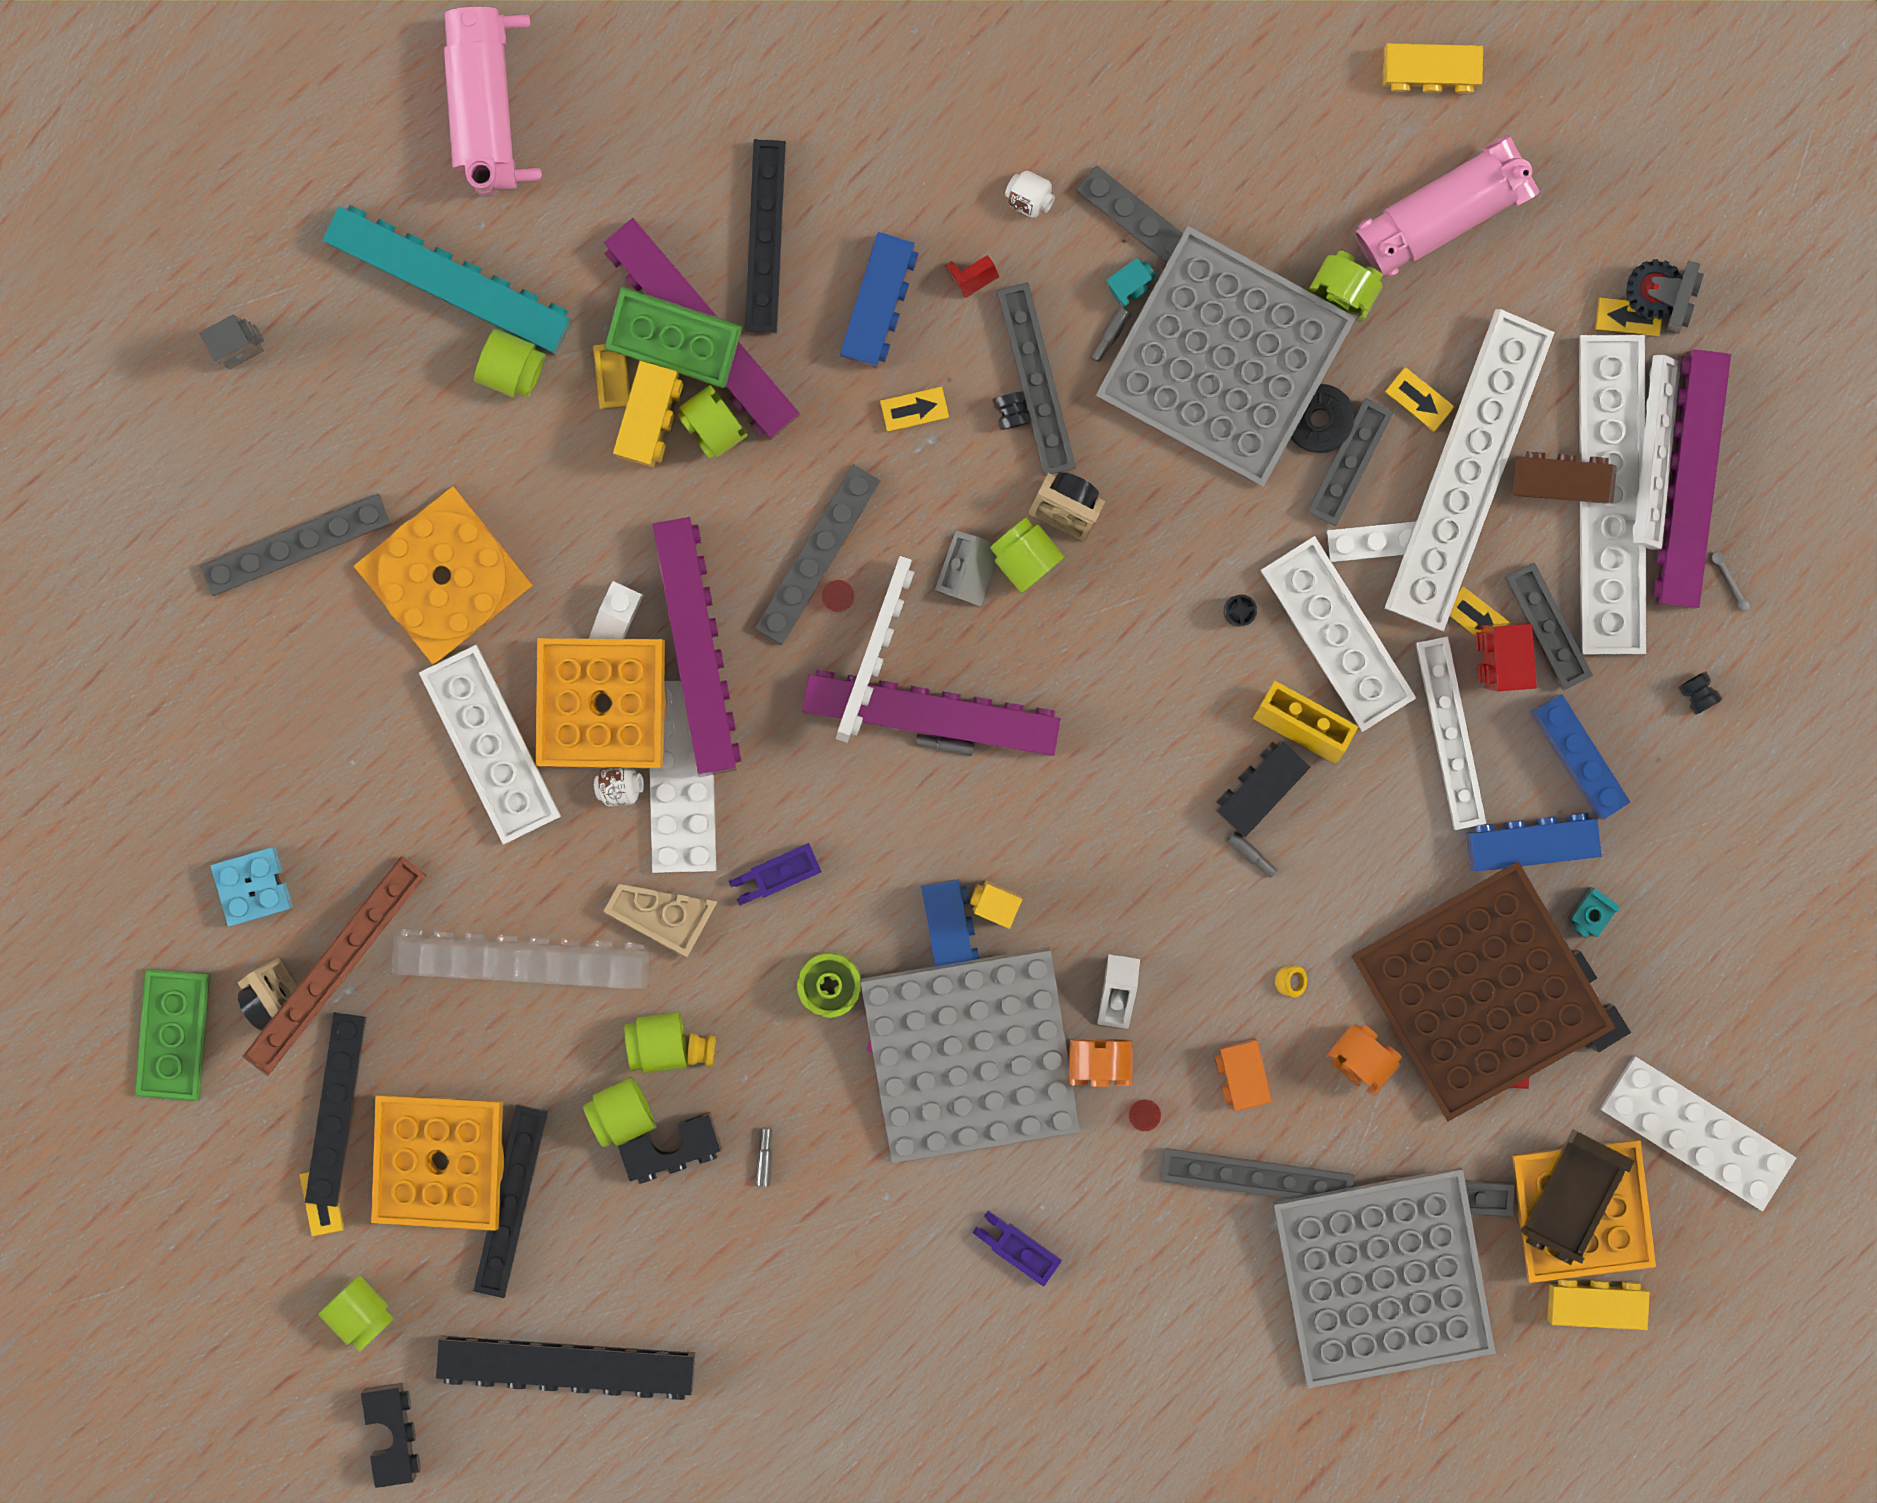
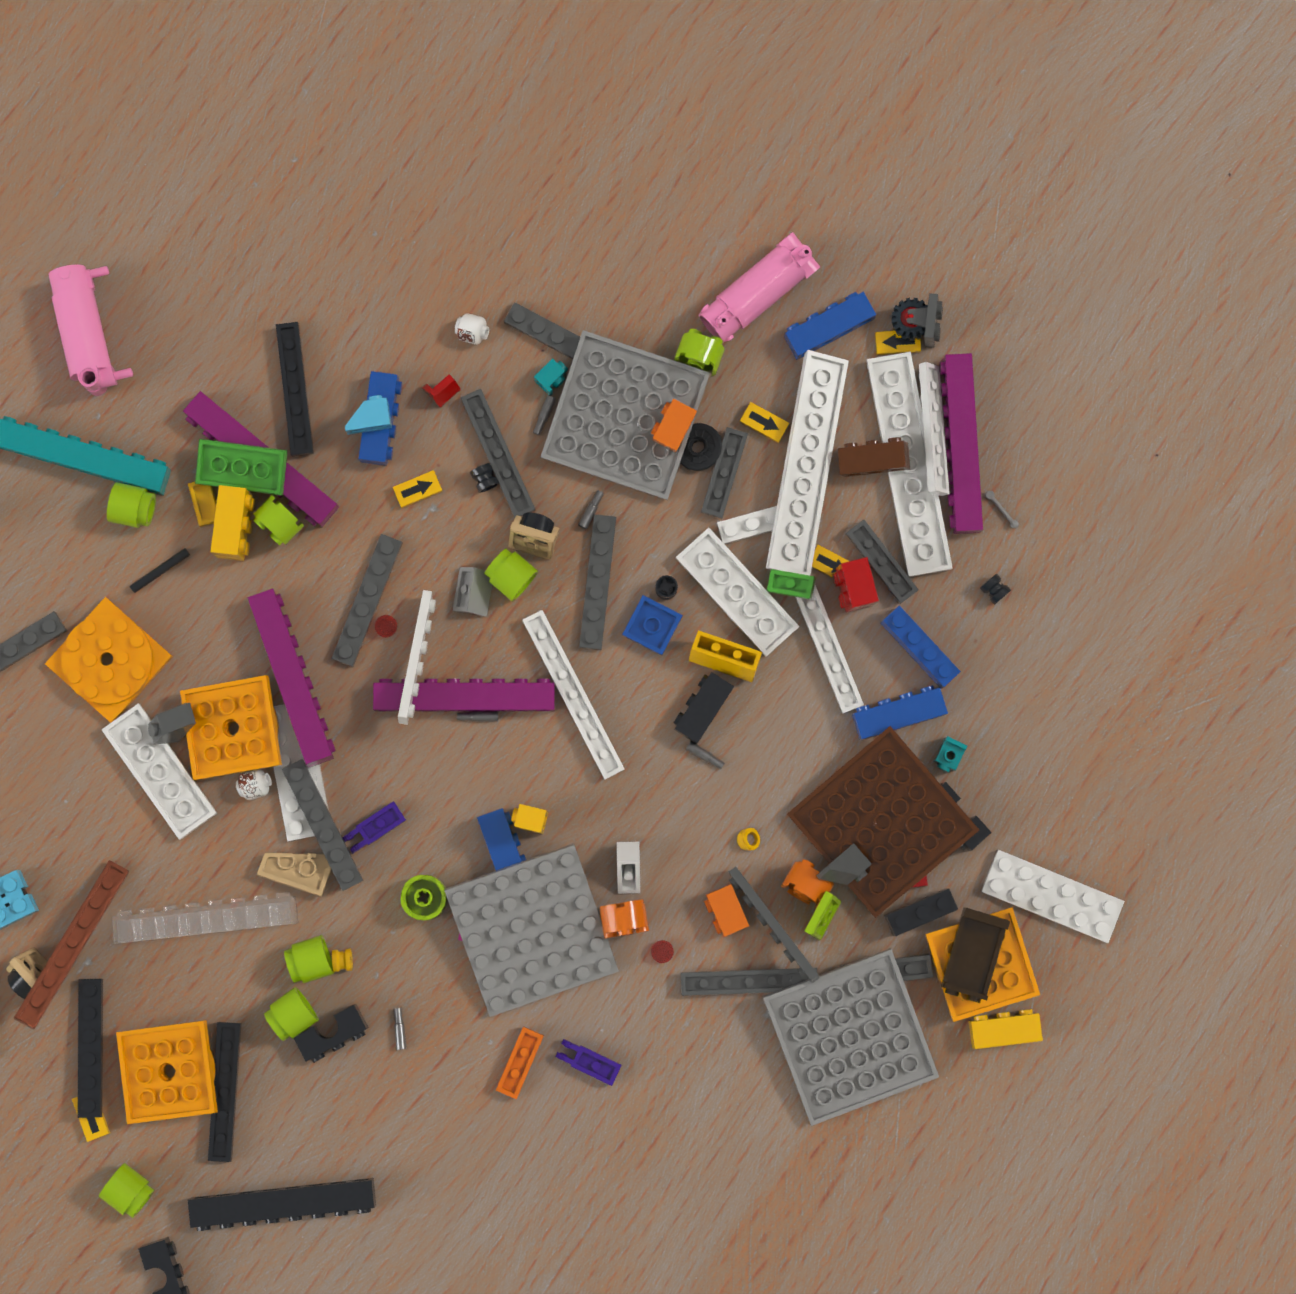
camera: 15 degrees left, 5 degrees down
(519, 684) = (171, 724): none -> dark grey slope
(534, 461) = (158, 571): none -> black bar
(616, 613) = (233, 662): white slope -> none
(705, 859) = (322, 825): none -> dark grey plate
(868, 298) = (370, 416): none -> medium azure slope
(922, 1232) = (519, 1062): none -> orange plate
(1083, 737) = (573, 694): none -> white plate
(1145, 585) = (597, 582): none -> dark grey plate
(1152, 482) = (590, 510): none -> flat silver pin
(1211, 659) = (652, 625): none -> blue plate
(1292, 384) = (673, 425): none -> orange brick
(1310, 1120) = (778, 933): none -> dark grey plate
(1376, 1106) = (823, 916): none -> lime tile
(1416, 637) = (791, 584): none -> bright green plate
(1421, 1046) = (846, 867): none -> dark grey slope
(1433, 67) = (732, 197): yellow brick -> none
(1513, 1125) = (921, 912): none -> black arch
(1537, 277) = (830, 325): none -> blue brick

